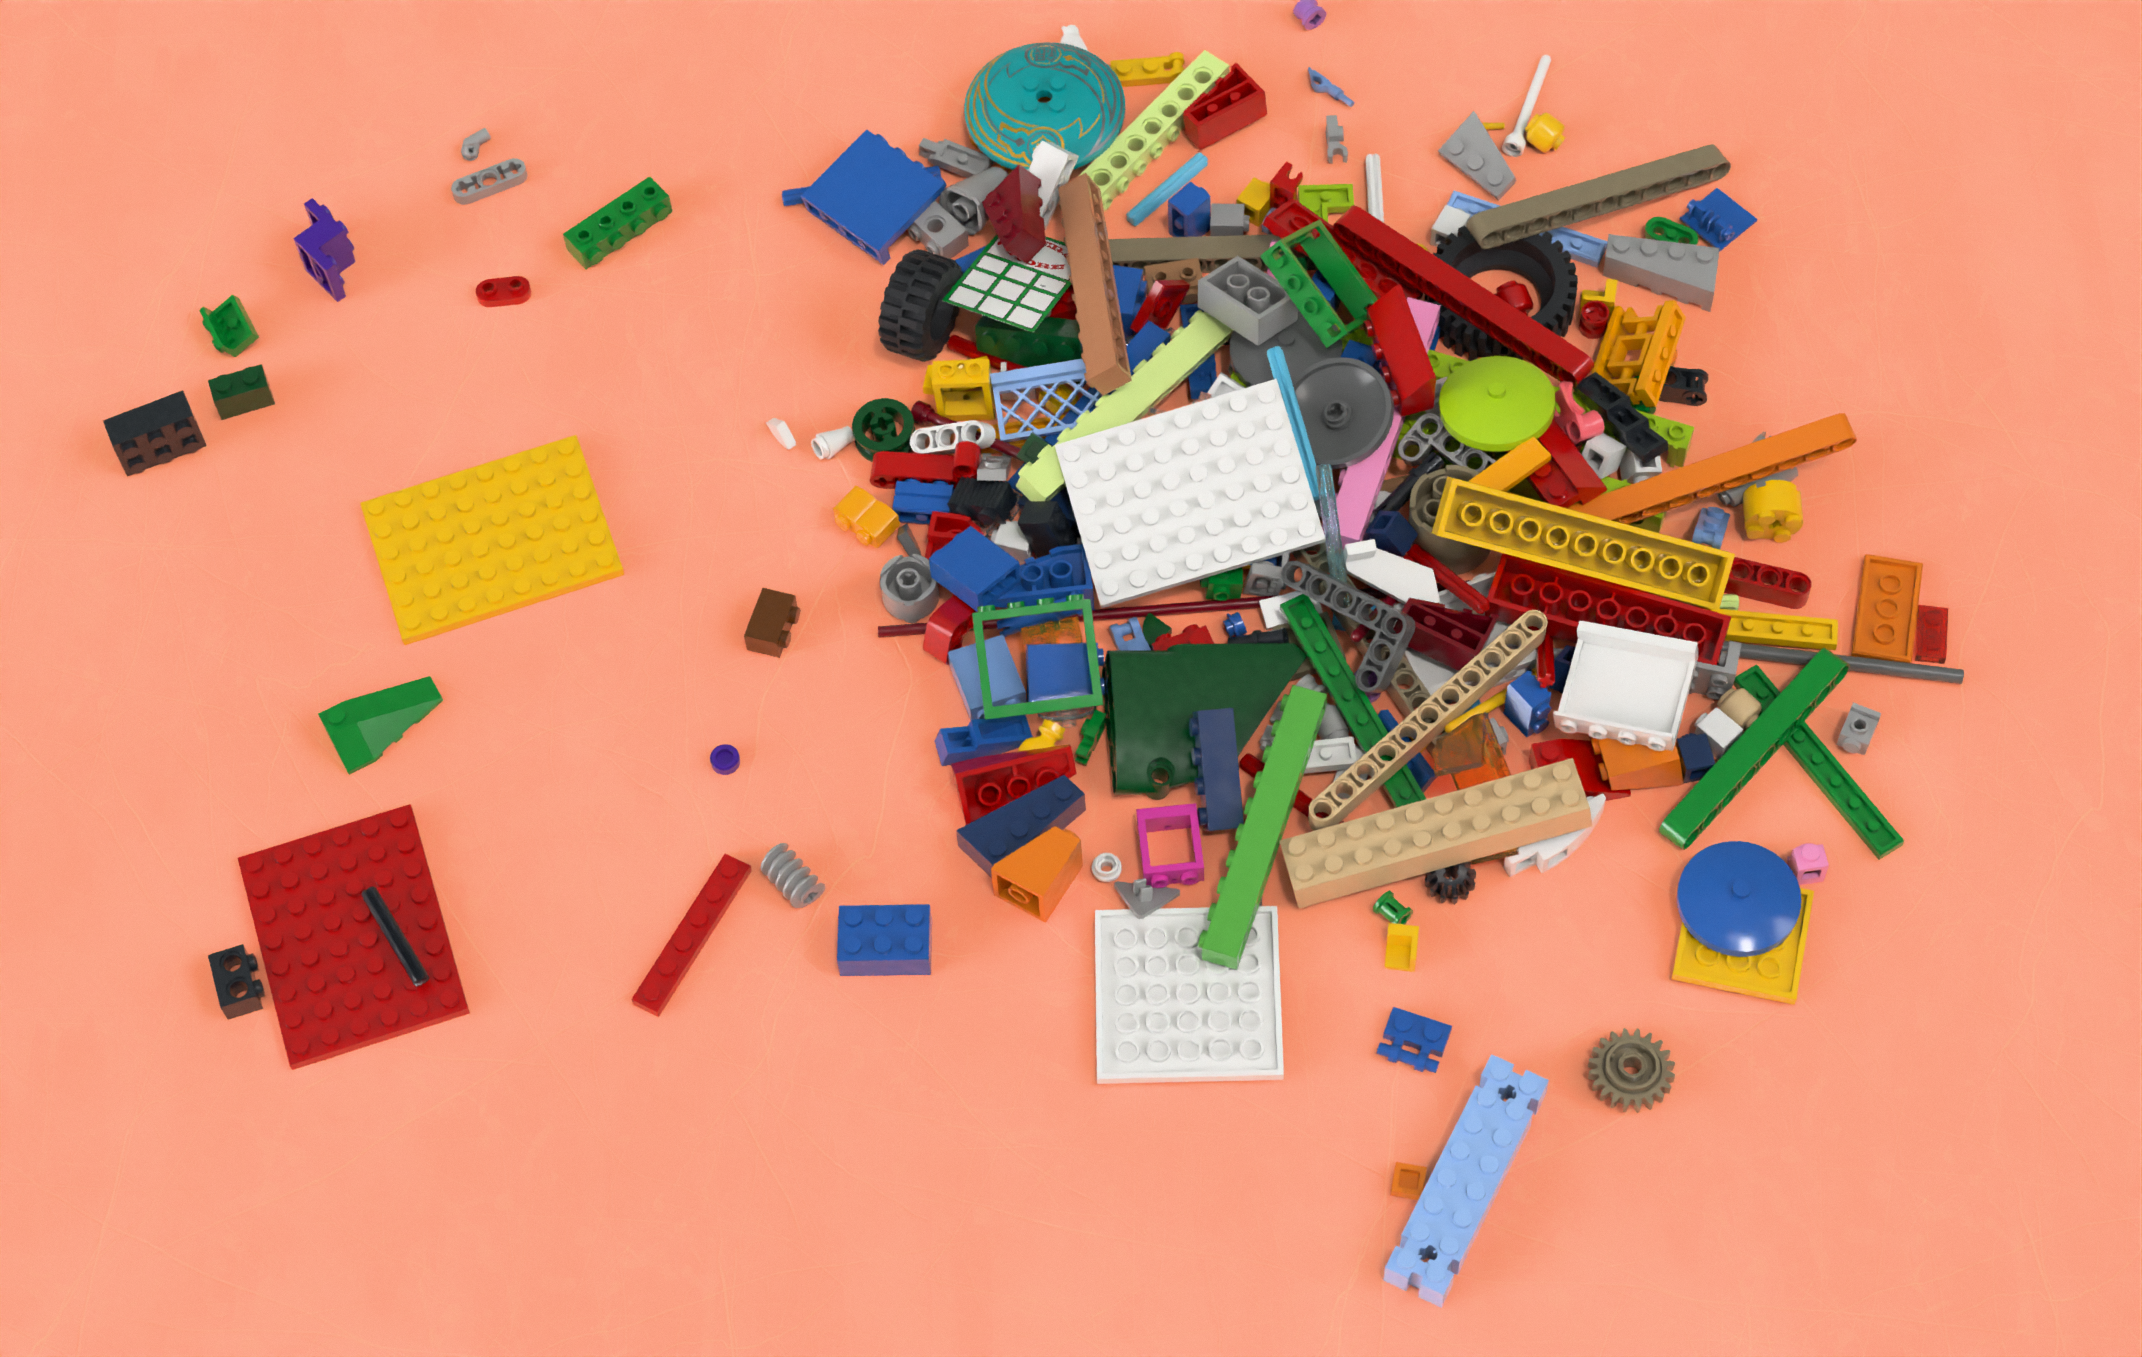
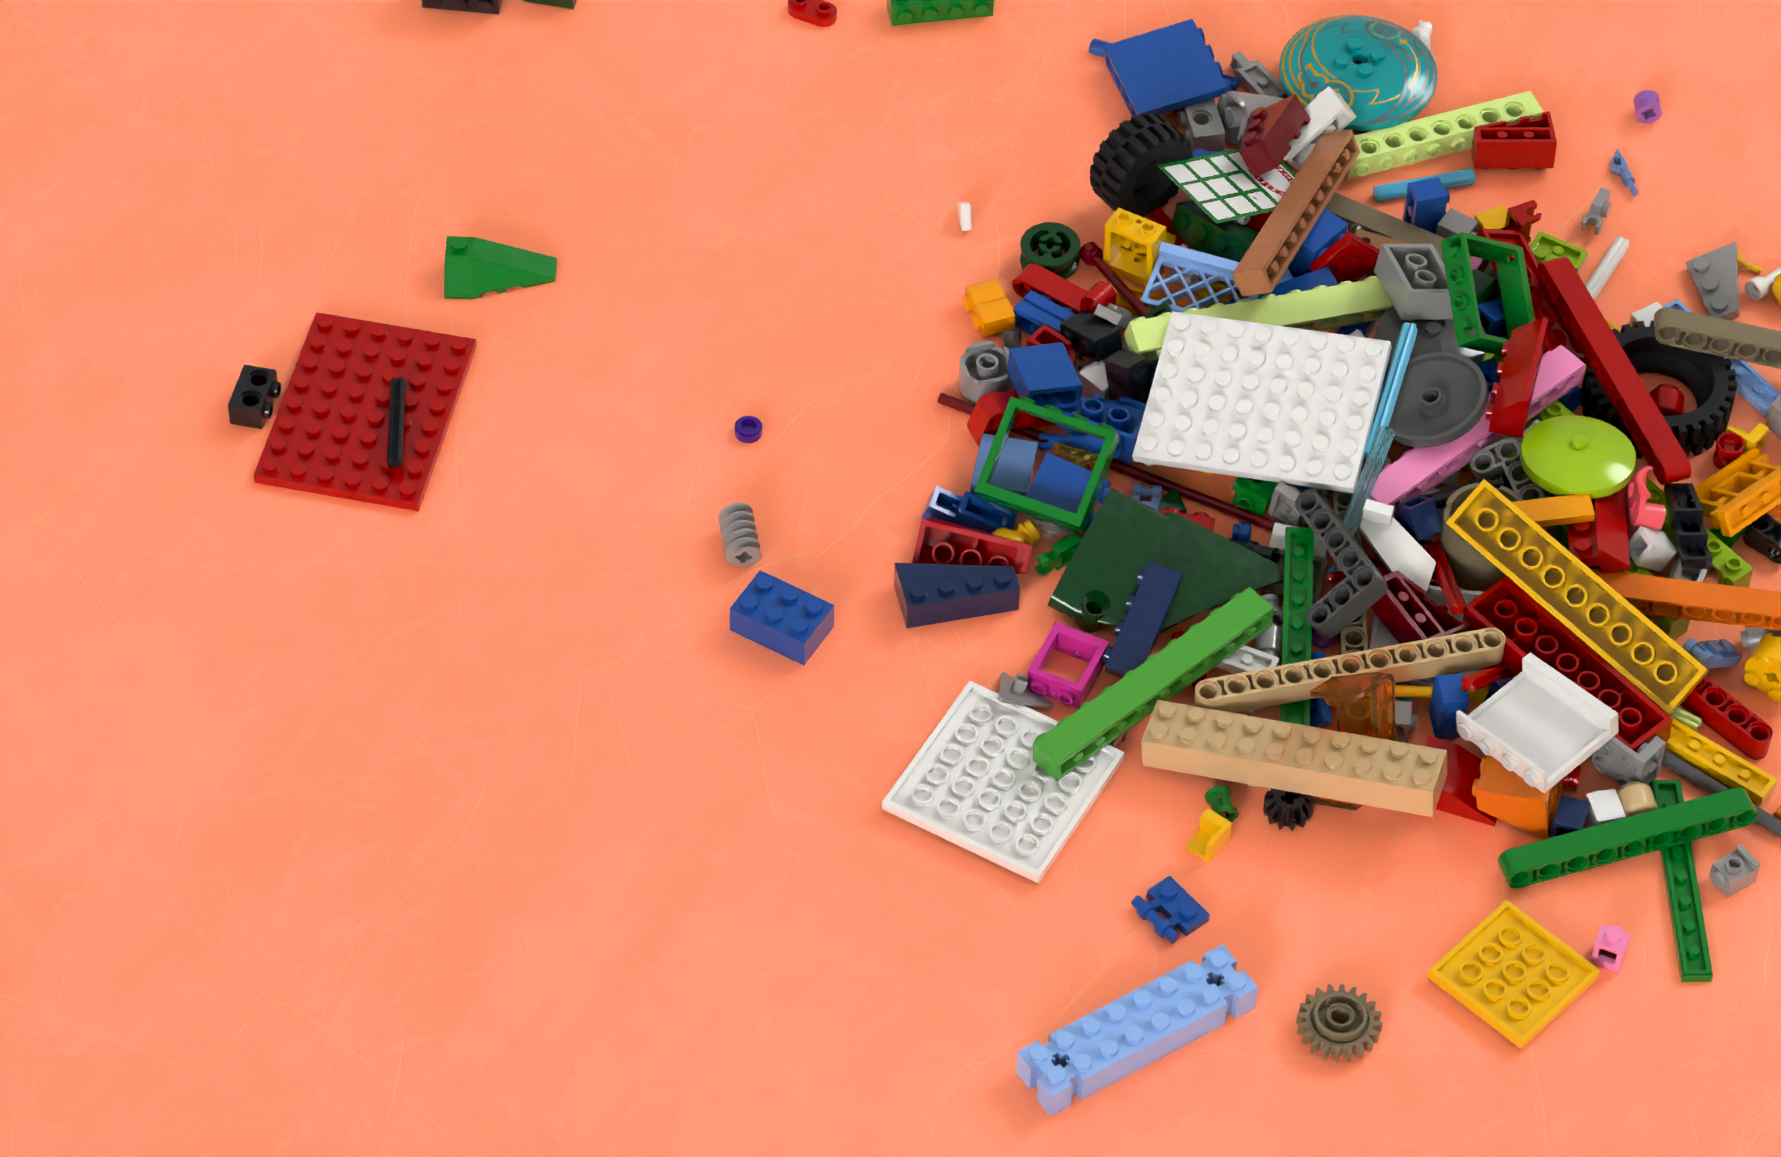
camera: 25 degrees right, 10 degrees down
(491, 539) = (675, 183): yellow plate -> none
(691, 935) = (631, 540): red plate -> none
(771, 622) = (855, 347): reddish brown brick -> none
(831, 442) = (1000, 240): white cone -> none
(941, 435) = (1087, 274): white beam -> none
(1039, 872) = (942, 628): orange slope -> none
(1106, 859) = (1001, 651): white plate -> none
(1148, 70) = (1470, 87): yellow plate -> none
(1408, 1181) = (1085, 1003): orange plate -> none
(1554, 850) = (1403, 828): white slope -> none
(1738, 898) = (1527, 941): blue dish -> none

